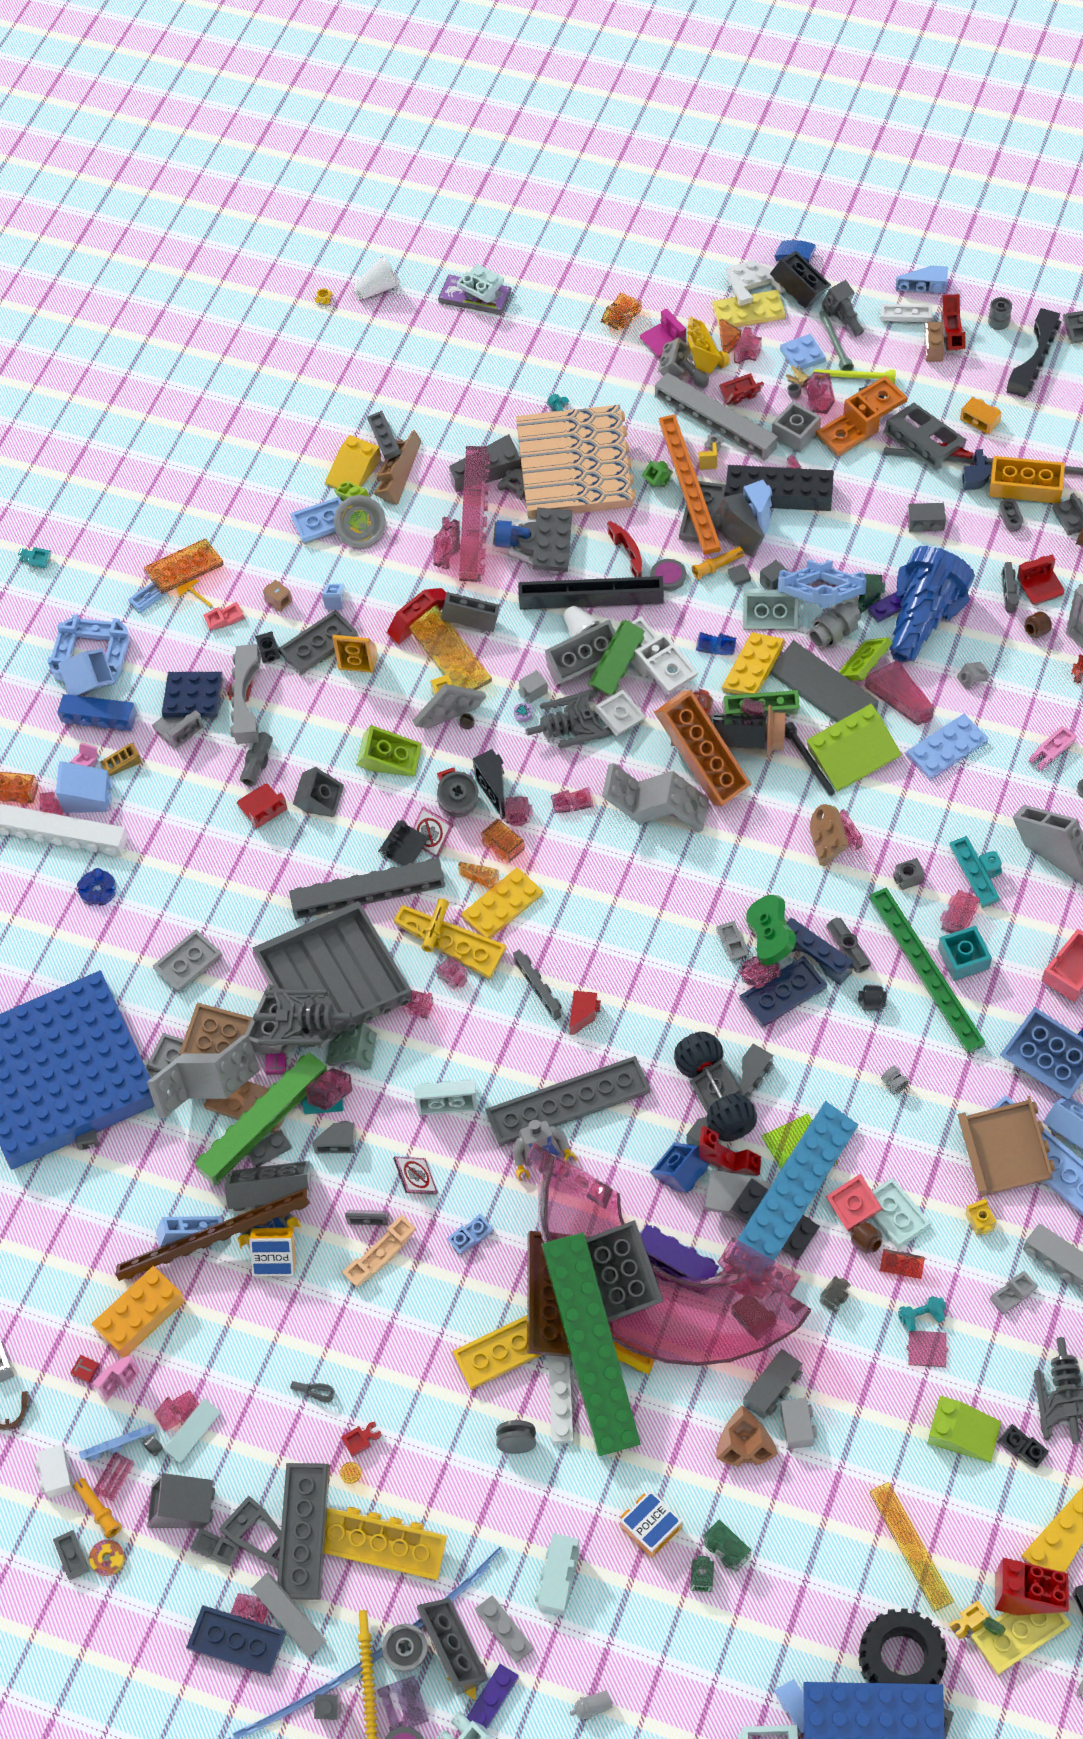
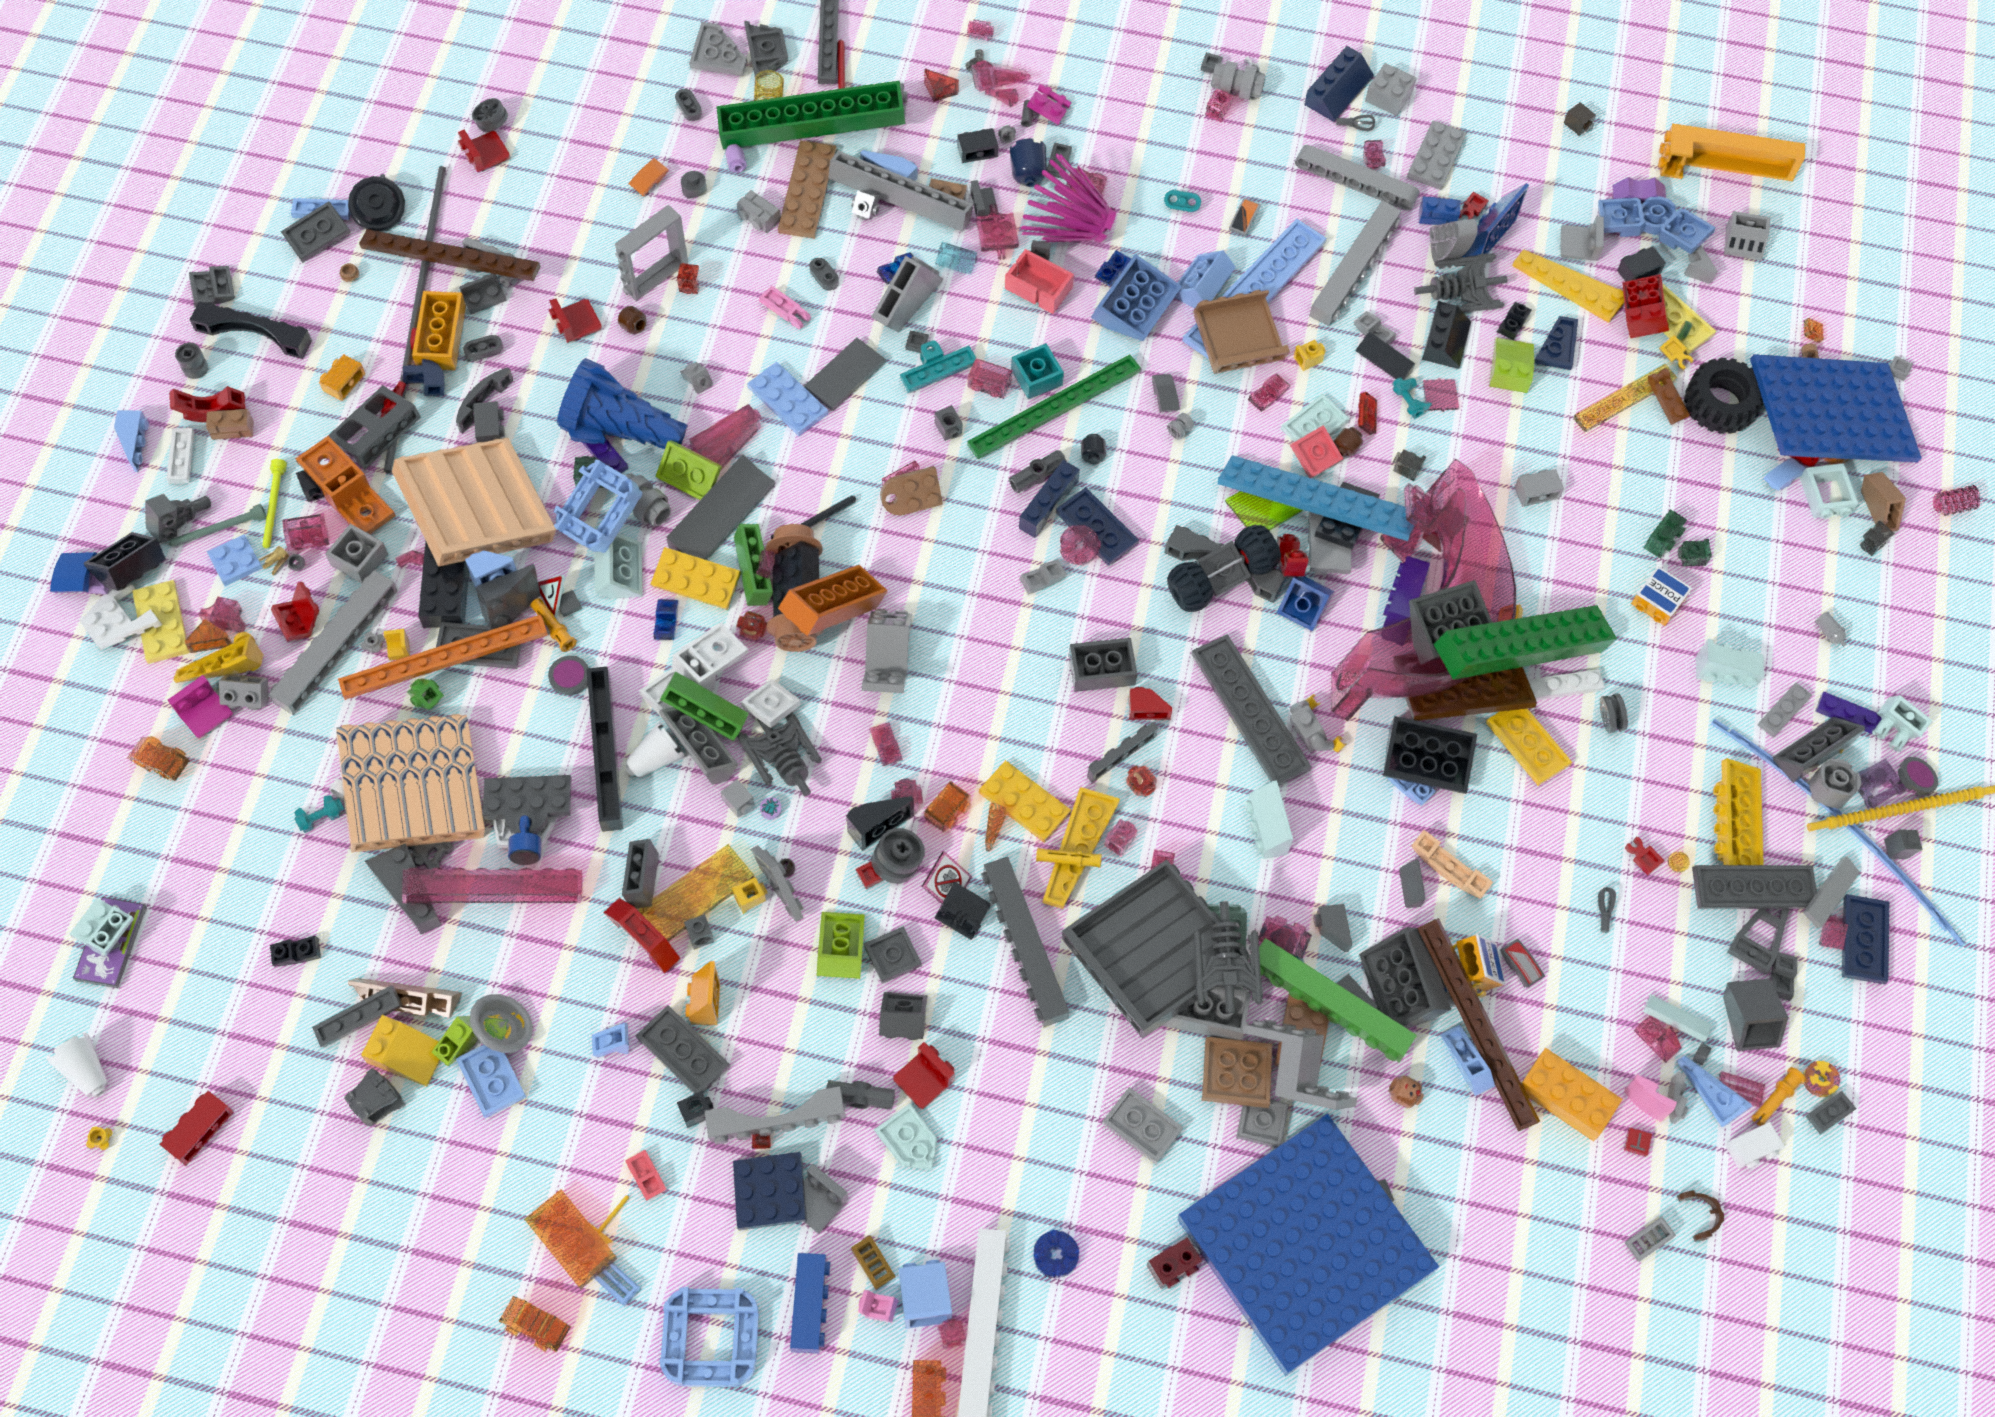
camera: 105 degrees left, 5 degrees up
(65, 966) = (1174, 1263): none -> dark red brick
(86, 672) = (762, 1320): light blue slope -> none
(111, 1409) = (1675, 1092): none -> light grey slope
(127, 540) = (534, 1324): none -> clear orange brick
(171, 1173) = (1406, 1091): none -> nougat head
(214, 792) = (909, 1139): none -> light aqua tile
(273, 1298) = (1522, 962): none -> slope
(275, 1064) = (1256, 1011): dark pink tile -> none
(277, 595) = (614, 1111): medium nougat brick -> none
(315, 447) = (374, 1098): none -> dark grey piece
(318, 348) = (196, 1127): none -> red brick
(373, 790) = (892, 955): none -> dark grey plate
(415, 1175) = (1364, 840): piece -> none
(416, 654) = (699, 932): none -> dark grey brick
(446, 543) = (534, 916): clear pink plate -> none
(447, 401) = (295, 952): none -> black slope
(492, 1249) = (1429, 754): none -> black slope
(505, 996) = (1141, 781): none -> clear red head
(618, 536) = (536, 713): red slope -> none
(626, 975) = (1102, 664): none -> dark grey brick
(700, 378) = (273, 663): dark grey piece -> none
(745, 1440) = (1565, 527): nougat brick -> none
(750, 562) = (551, 592): none -> piece
(768, 924) = (1049, 529): green plate -> none
(770, 574) = (575, 564): dark grey brick -> none
(773, 1384) = (1510, 509): dark grey brick -> none
(836, 498) = (473, 500): none -> light nougat panel
(853, 747) = (801, 476): lime slope -> none
(907, 1592) = (1668, 396): none -> dark orange plate
(935, 1173) = (1269, 393): none -> clear pink slope
(937, 1070) = (1166, 393): none -> dark grey slope
(957, 510) = (496, 381): none -> dark grey slope
(973, 794) = (845, 374): none -> dark grey tile
(975, 1296) = (1385, 357): none -> black slope
(987, 1489) = (1560, 345): none -> dark blue wing
(1000, 1364) = (1447, 336): none -> black slope
(1010, 595) = (583, 346): dark grey hinge -> none
(1011, 858) = (915, 341): none -> dark grey tile

